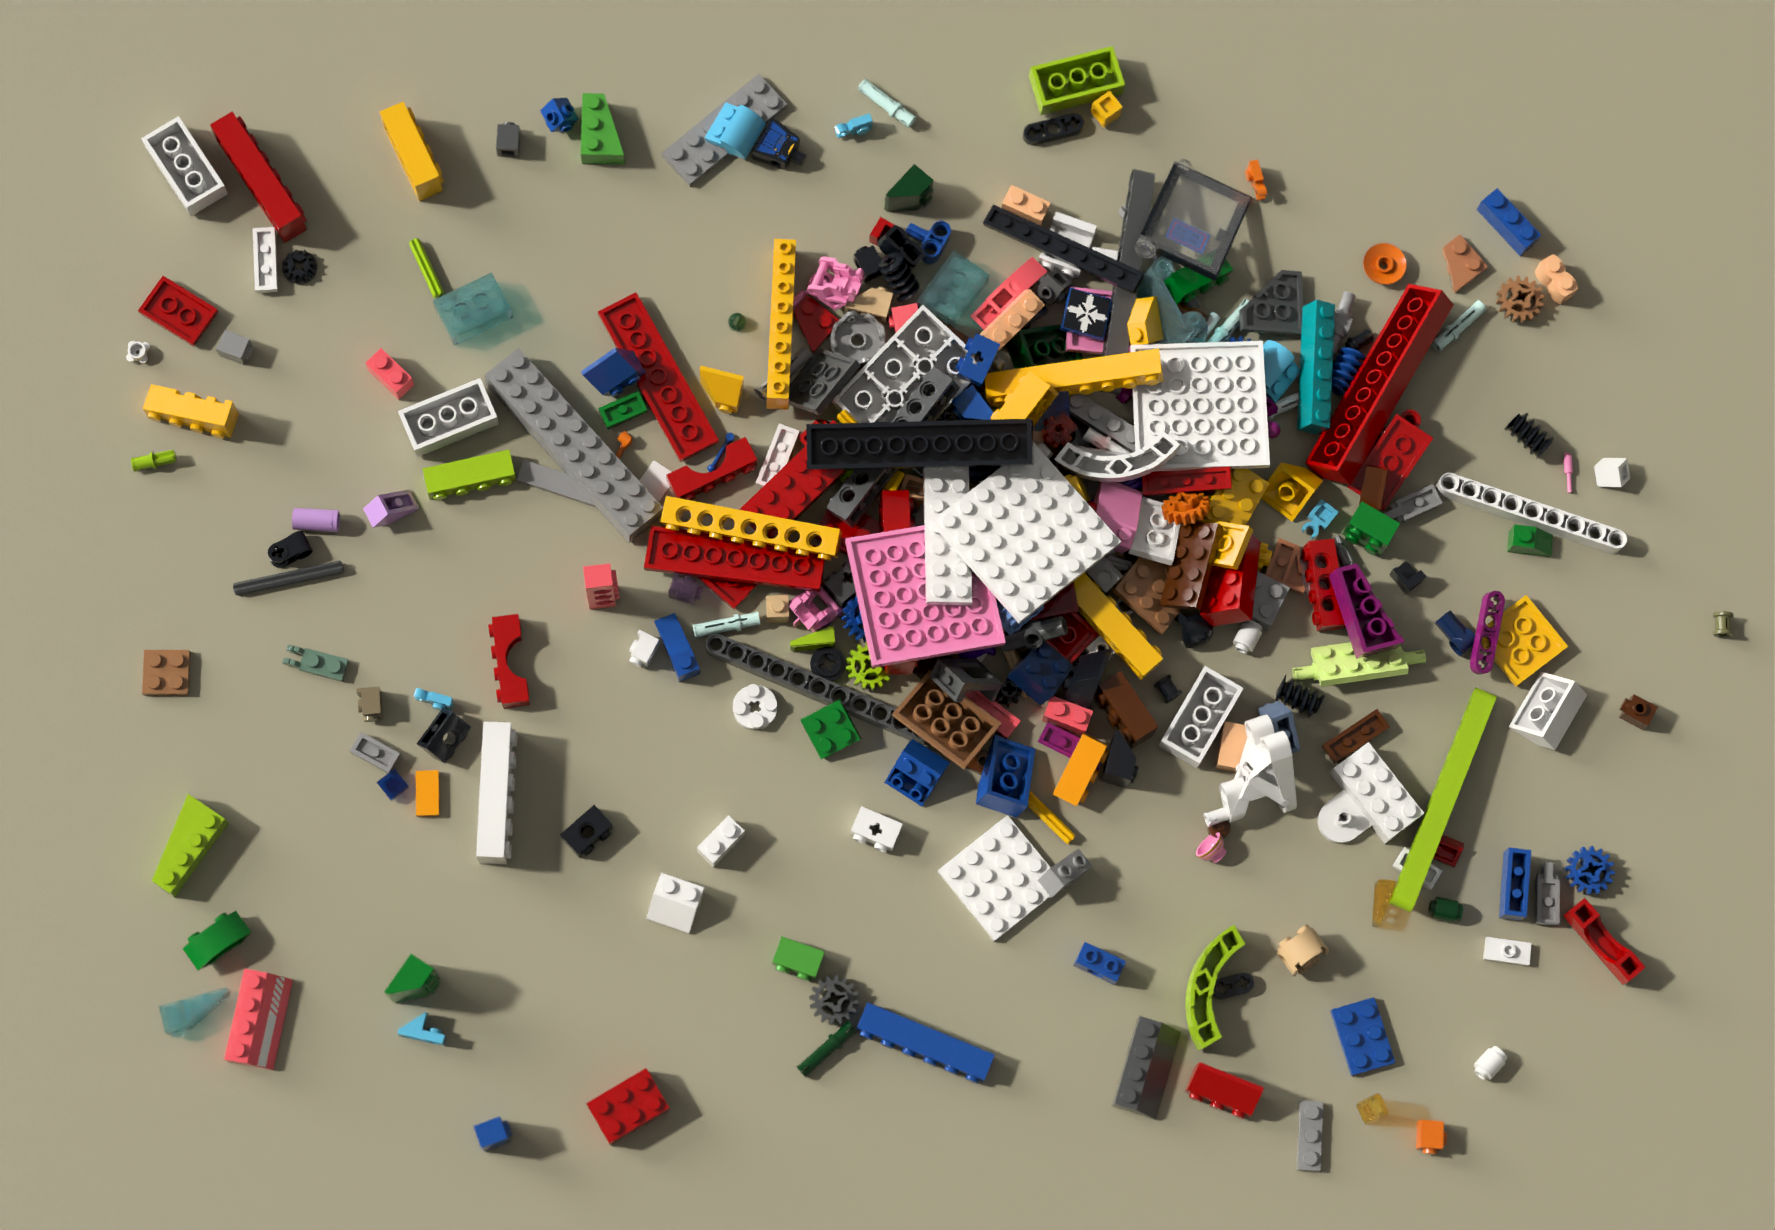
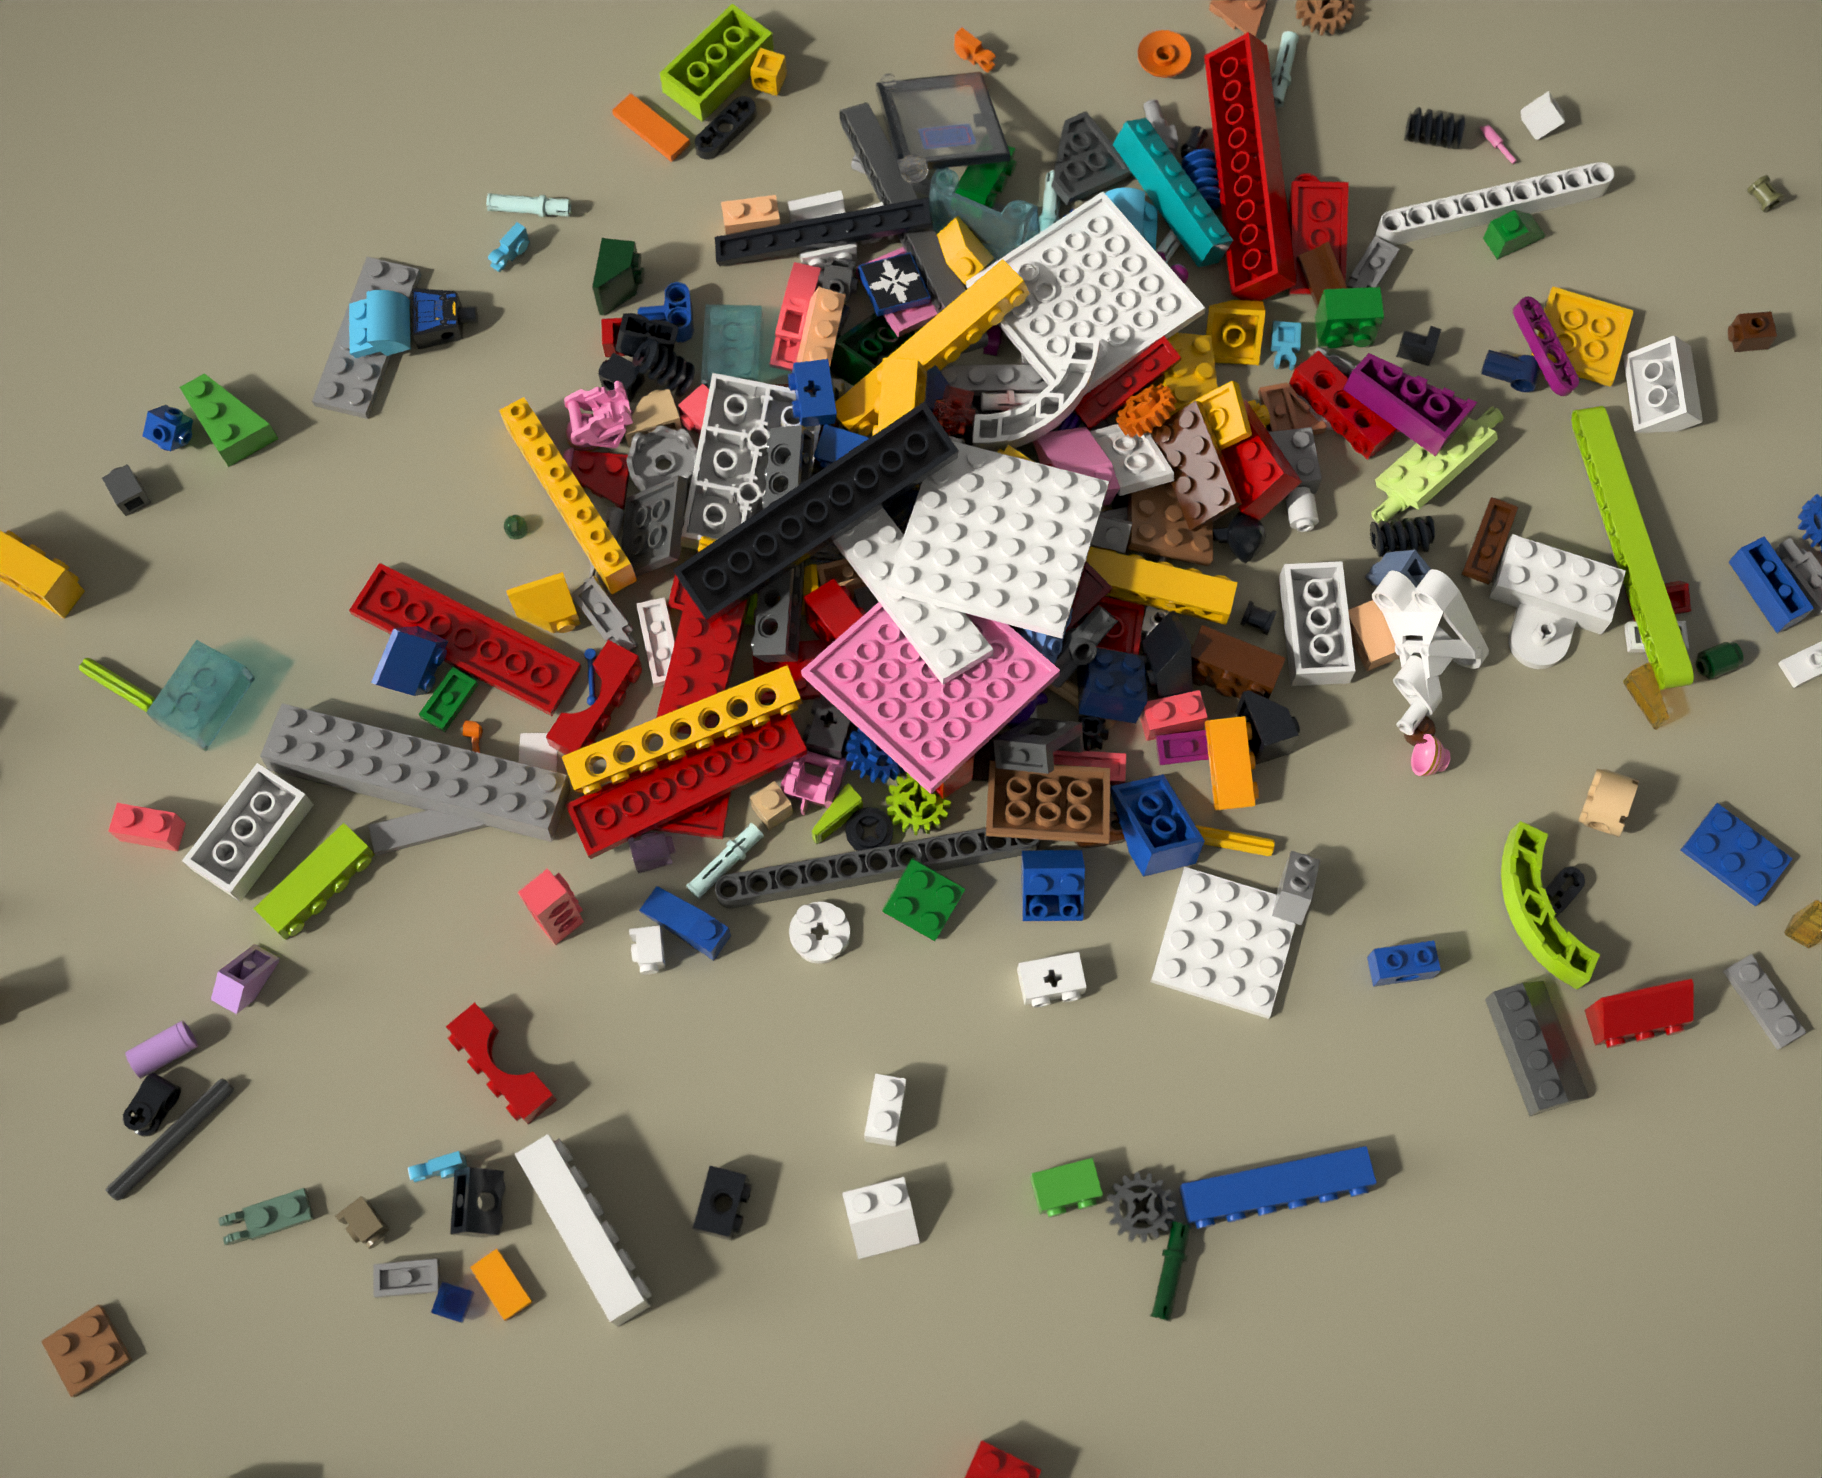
camera: 25 degrees left, 5 degrees down
(754, 418) = (604, 613): none -> light grey hinge
(1004, 97) = (651, 127): none -> orange tile

